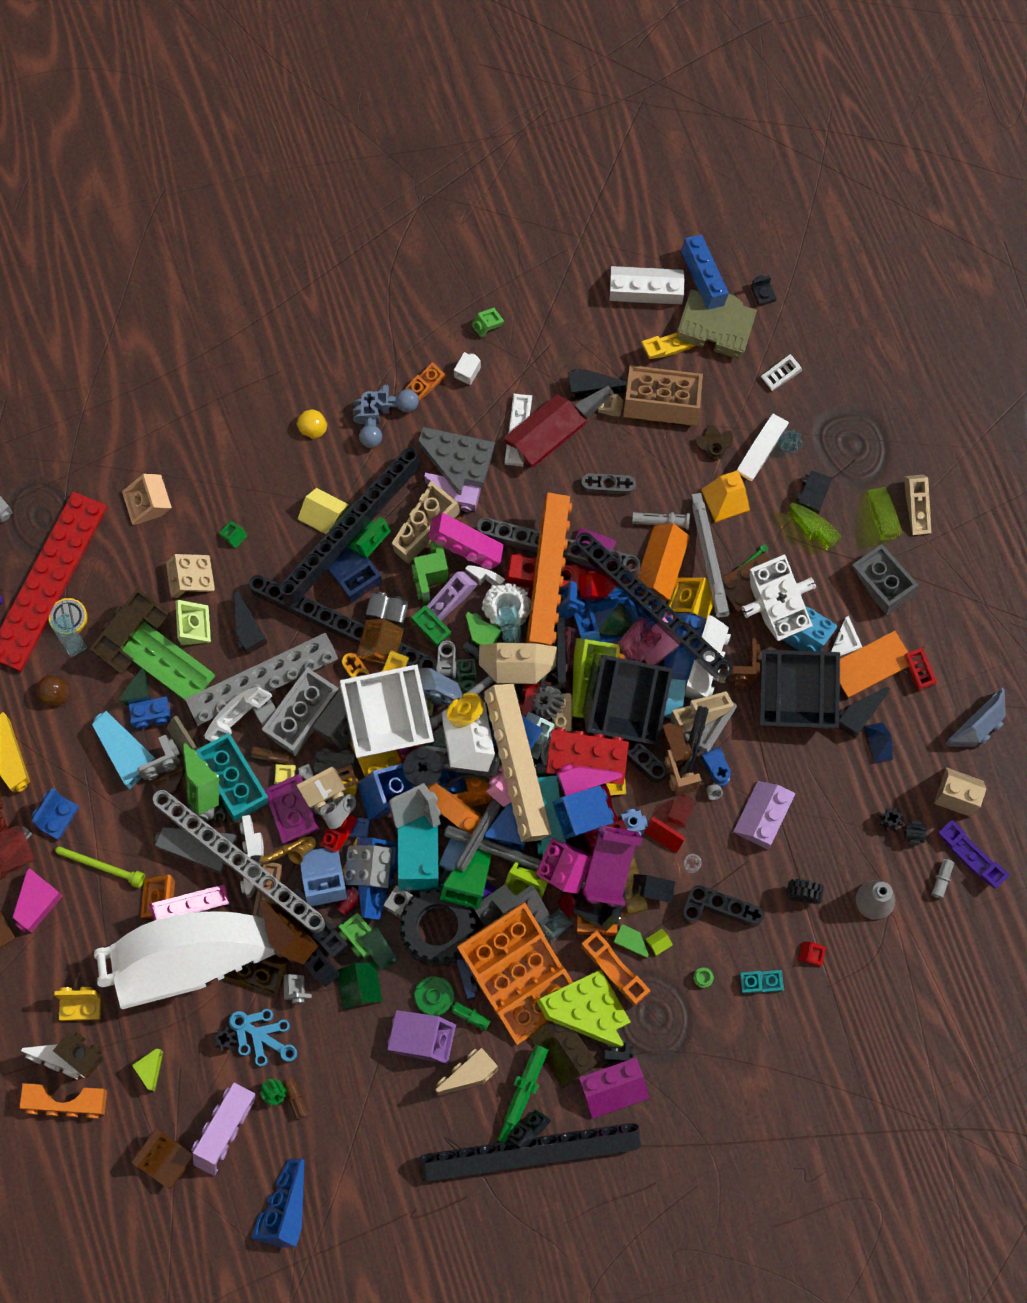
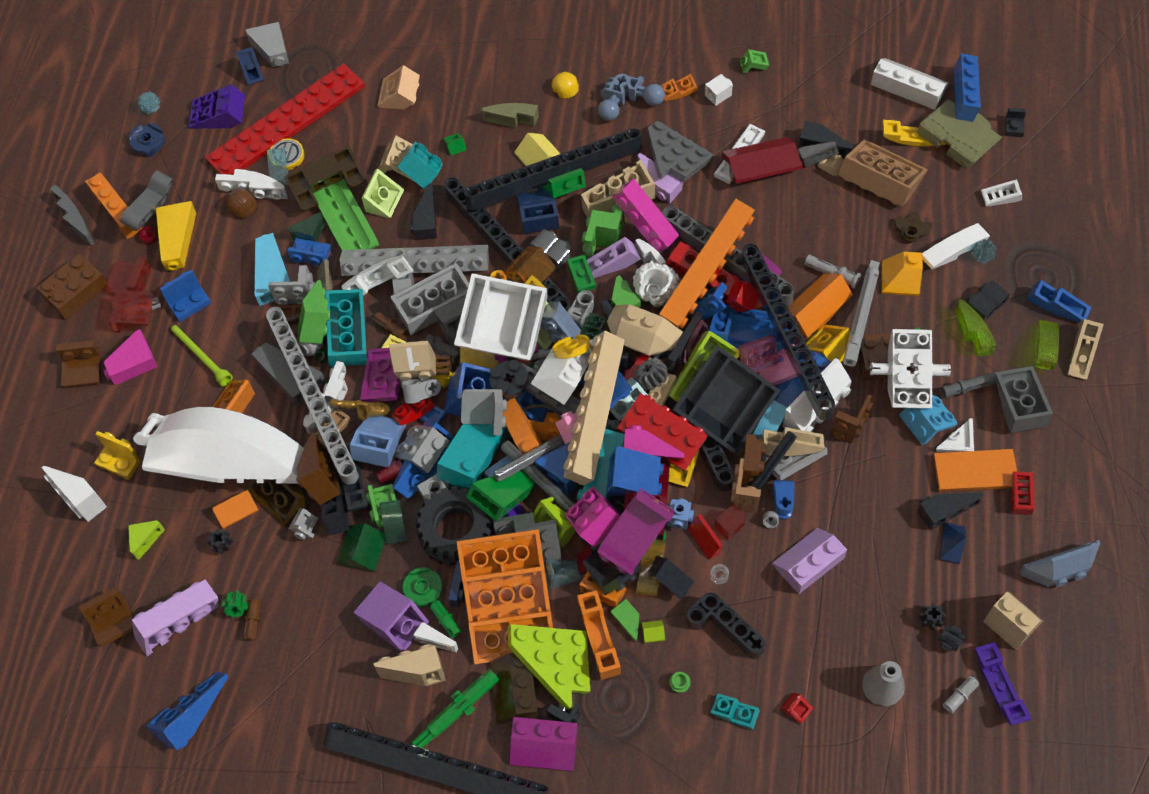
camera: 30 degrees right, 10 degrees down
(37, 1098) = (76, 541): orange arch -> none
(60, 663) = (257, 183): none -> white slope
(67, 1048) = (77, 480): dark brown brick -> none
(190, 903) = (272, 416): tile -> none
(215, 575) = (420, 165): none -> teal slope
(221, 1002) = (235, 509): none -> orange slope
(260, 1035) = (253, 551): dark azure plant -> none
(275, 480) = (511, 114): none -> olive slope
(468, 1038) = (430, 636): none -> white slope
(511, 629) = (653, 291): clear light blue slope -> none
(525, 1133) = (435, 746): black slope -> none
(602, 489) = (784, 223): dark grey beam -> none
(617, 622) = (746, 332): clear green slope -> none
(800, 689) = (895, 458): black slope -> none
(805, 891) = (815, 644): black tyre -> none
(827, 588) = (962, 387): none -> dark grey pin
(877, 466) = (1058, 302): none -> blue slope

